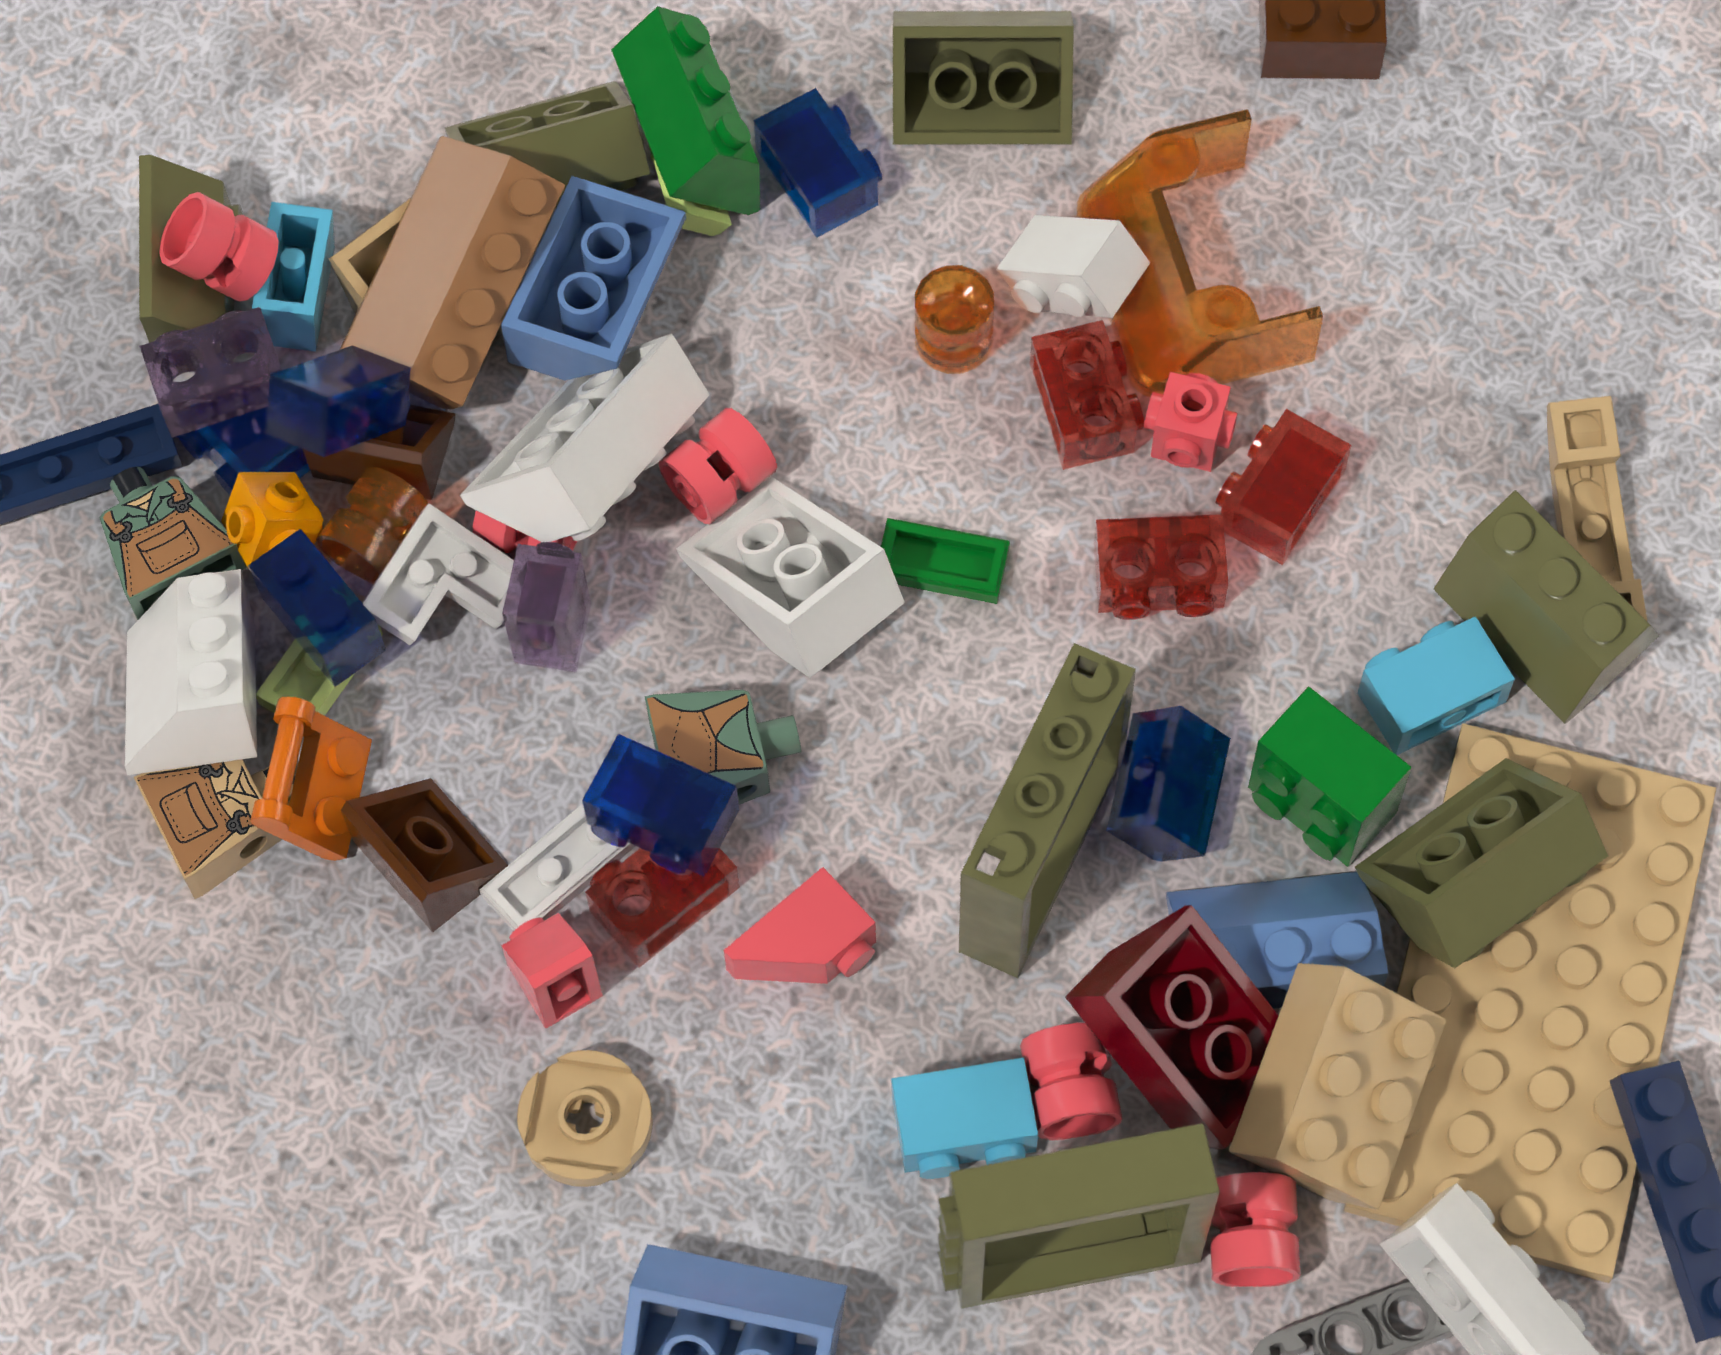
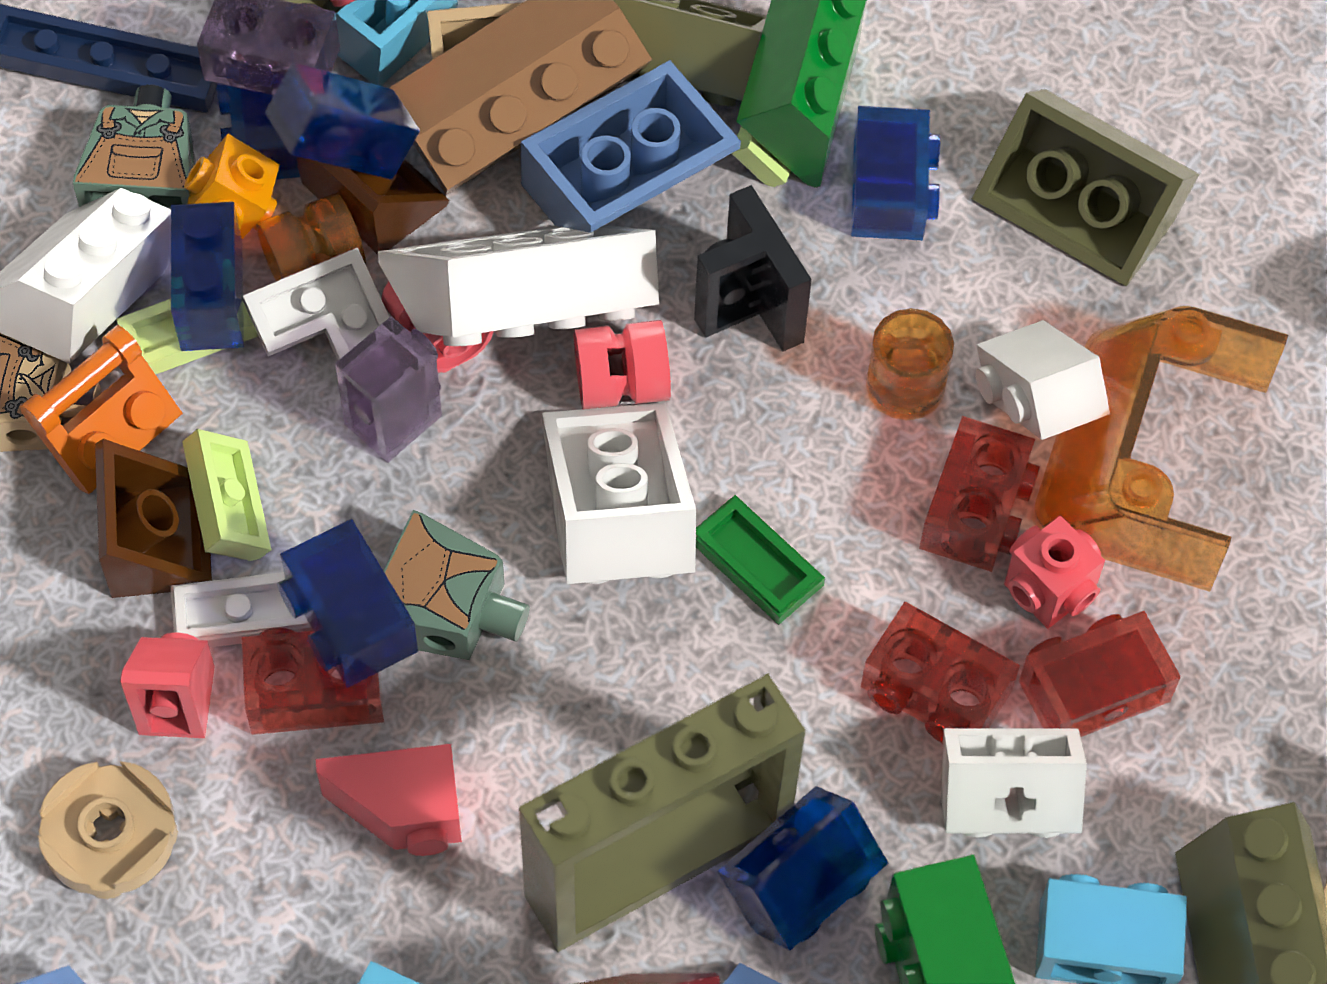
camera: 30 degrees right, 5 degrees down
(468, 785) = (226, 495): none -> yellowish green plate
(777, 316) = (752, 276): none -> black bracket
(1279, 611) = (1013, 781): none -> white brick

